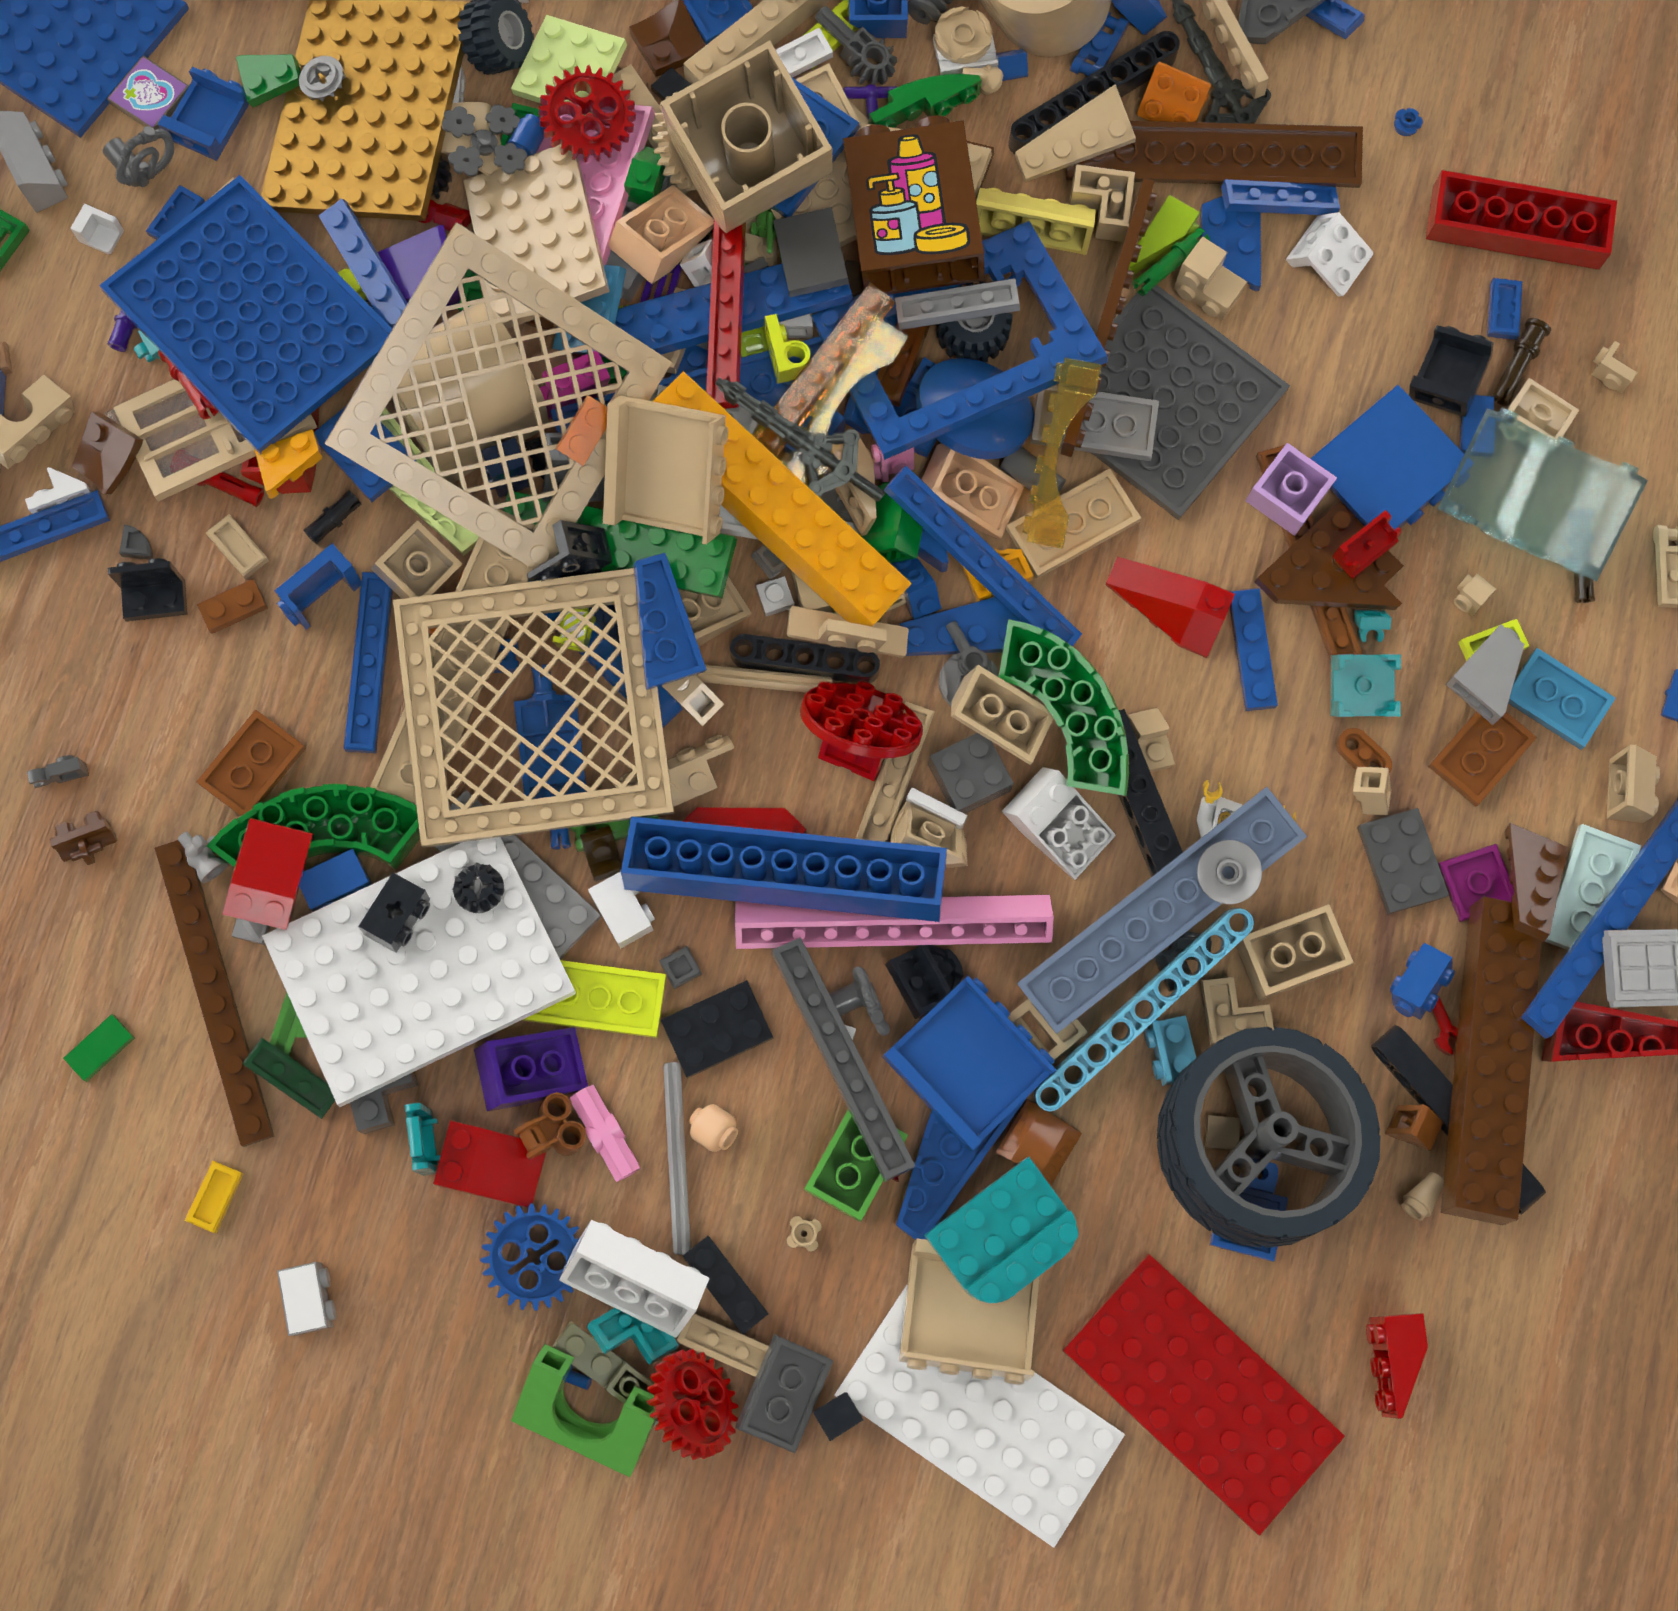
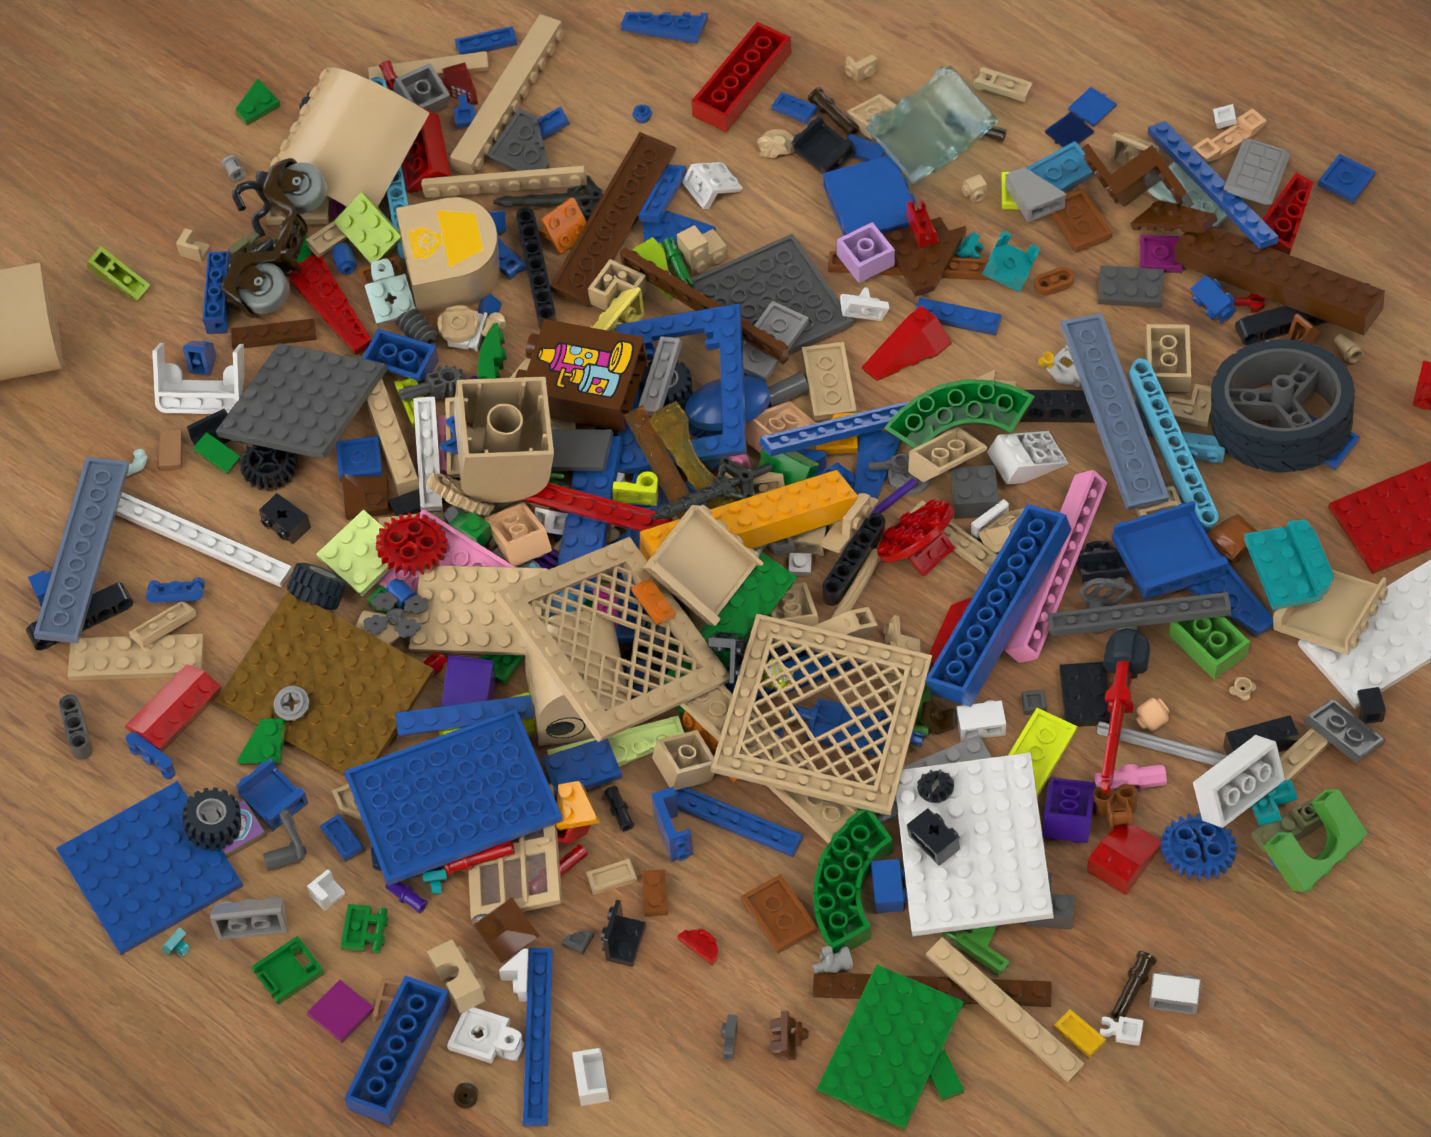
camera: 60 degrees left, 20 degrees down
(61, 285) = (357, 925): none -> green plate
(109, 969) = (890, 1047): none -> green plate
(131, 58) = (212, 819): none -> black wheel
(177, 689) = (701, 943): none -> red plate
(204, 1092) = (1005, 1010): none -> tan plate
(234, 1255) = (1126, 1030): none -> white plate
(250, 931) = (895, 950): light grey tile -> none
(268, 874) = (871, 910): red slope -> none
(290, 1077) = (1016, 955): dark green tile -> none
(315, 1242) = (1137, 976): none -> dark brown pin
(422, 1139) = (1094, 881): teal container -> none
(665, 630) = (805, 613): blue wing -> none
(692, 1404) = (1334, 775): red gear -> none
(785, 1063) = (1127, 656): none -> piece
(919, 673) = (895, 496): none -> dark purple bar
(1076, 387) = (756, 328): clear yellow arch -> none
(1084, 134) = (566, 282): tan wing -> none
(1209, 520) = (863, 306): none -> white panel
(1245, 866) = (1111, 351): light grey dish -> none
(1373, 789) = (1081, 280): tan brick -> none
(1434, 307) = (775, 143): none -> tan hat
(1568, 93) = (665, 25): none -> blue wing
(1579, 803) = (1136, 176): none -> reddish brown bracket
(1636, 684) = (1068, 130): none -> clear blue piece

